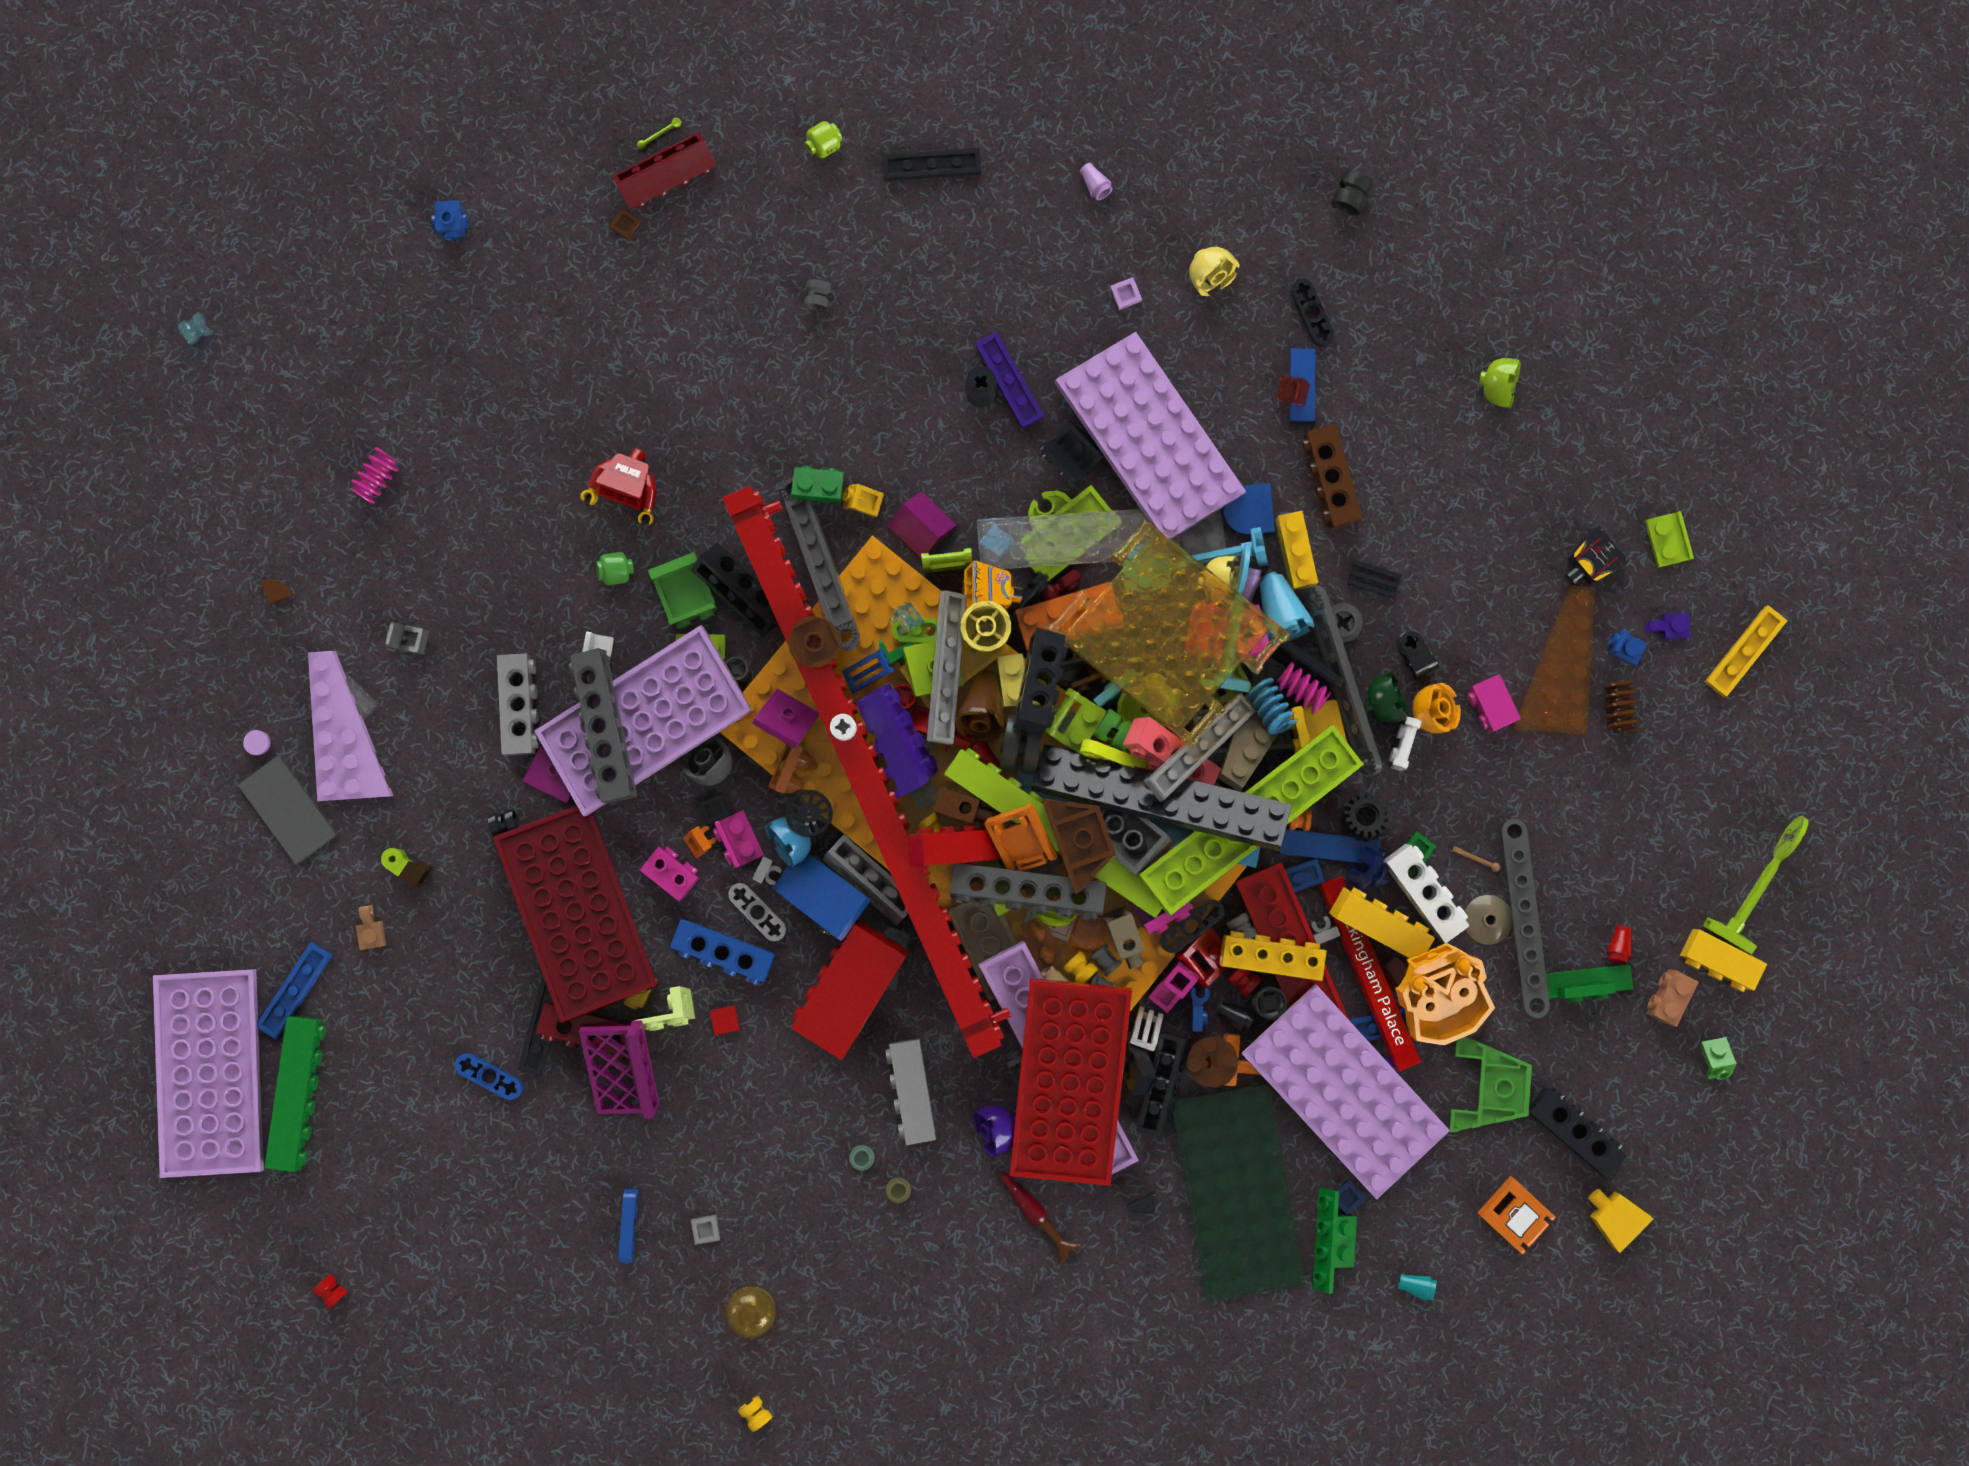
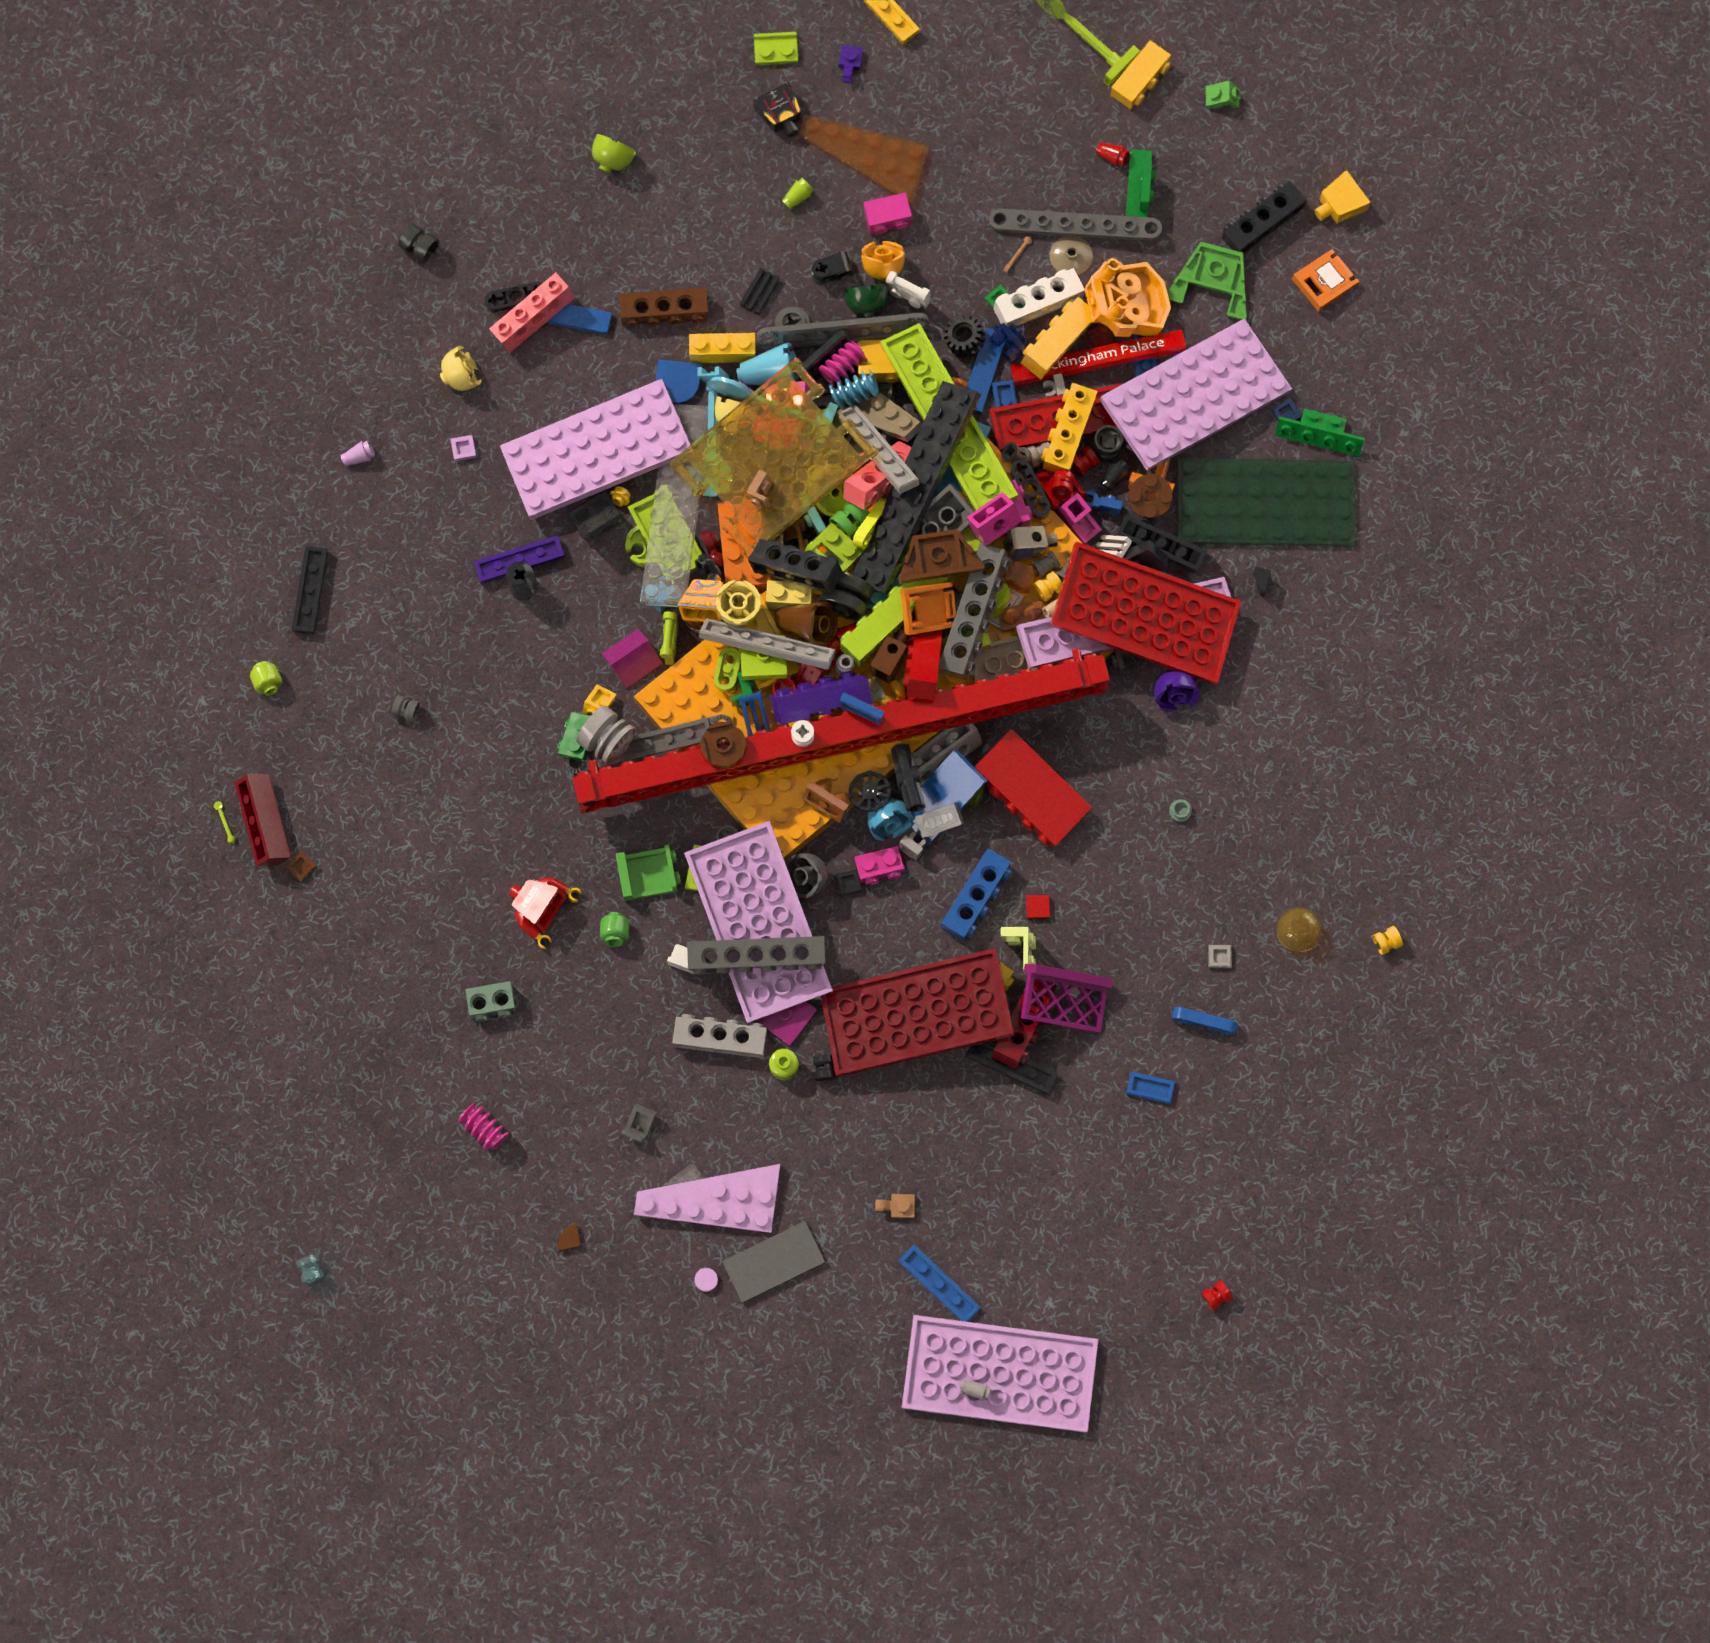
camera: 75 degrees left, 10 degrees down
(180, 1051) = (975, 1390): none -> light grey pin
(294, 1093) = (1032, 1296): green brick -> none
(399, 864) = (842, 1168): leg -> none
(450, 220) = (255, 1017): blue brick -> none
(475, 1061) = (1044, 1139): blue beam -> none
(497, 779) = (783, 1064): none -> lime head
(517, 452) = (490, 994): none -> sand green brick
(546, 1179) = (1150, 1087): none -> blue tile
(670, 873) = (898, 928): dark pink brick -> none
(698, 842) = (875, 900): orange tile -> none
(736, 587) = (656, 822): black brick -> none
(766, 929) = (948, 852): light grey beam -> none
(785, 718) = (782, 792): magenta plate -> none
(794, 895) = (939, 820): none -> tile
(813, 513) = (606, 735): none -> light grey wheel
(828, 852) = (907, 777): none -> black piece
(883, 787) = (862, 708): none -> blue tile
(898, 1190) = (1214, 784): olive plate -> none
(907, 617) = (716, 670): clear light blue tile -> none
(912, 1091) = (1130, 754): light grey brick -> none
(944, 764) = (844, 659): none -> light grey pin
(1037, 1215) = (1257, 670): dark red piece -> none
(1102, 474) = (620, 496): none -> yellow plate
(1125, 622) = (760, 485): none -> medium nougat bracket
(1135, 893) = (994, 519): none -> dark pink brick
(1206, 961) = (1063, 485): none -> red wheel
(1238, 897) = (1016, 452): none -> dark grey bush
(1293, 390) = (581, 324): clear red slope -> none
(1294, 333) = (532, 312): none -> coral brick
(1419, 1286) = (1372, 368): teal cone -> none
(1497, 598) = (798, 193): none -> lime cone
(1621, 706) = (911, 112): reddish brown piece -> none
(1626, 647) = (860, 99): blue bracket -> none
(1671, 997) = (1164, 121): nougat brick -> none

